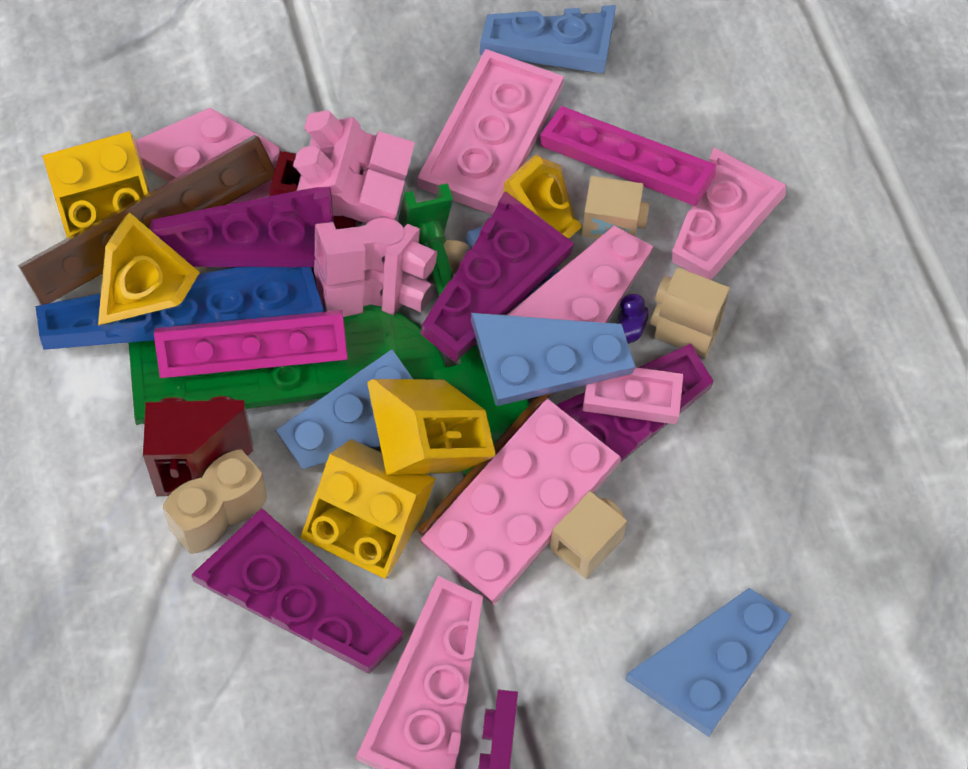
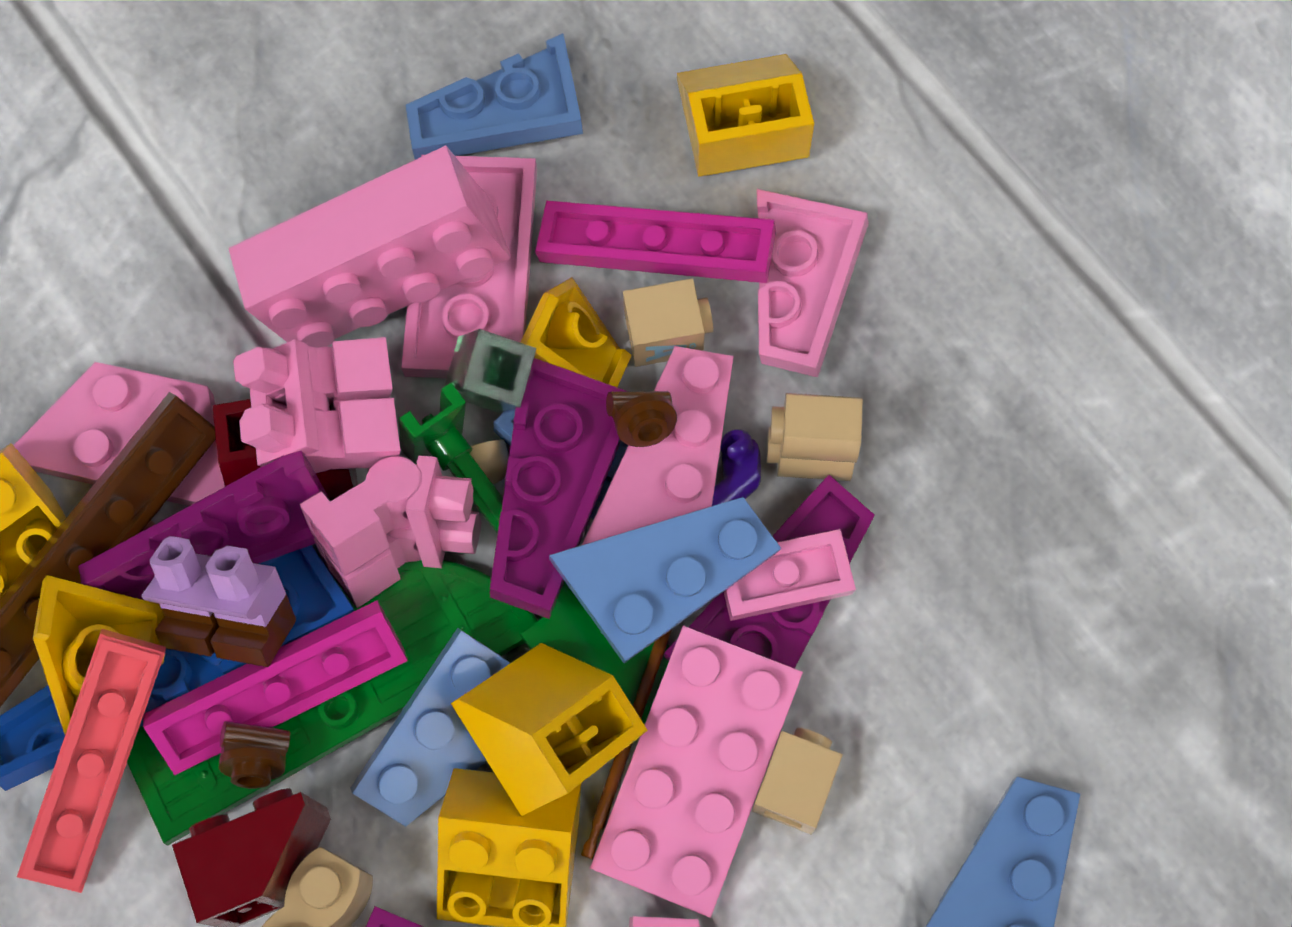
camera: 15 degrees left, 10 degrees up
(109, 346) = (91, 761): none -> coral tile
(218, 378) = (252, 754): none -> reddish brown plate
(235, 269) = (218, 603): none -> lavender hips
(429, 87) = (370, 251): none -> bright pink brick
(478, 191) = (490, 370): none -> brick
(571, 255) = (642, 416): none -> reddish brown plate
(724, 98) = (746, 114): none -> yellow slope

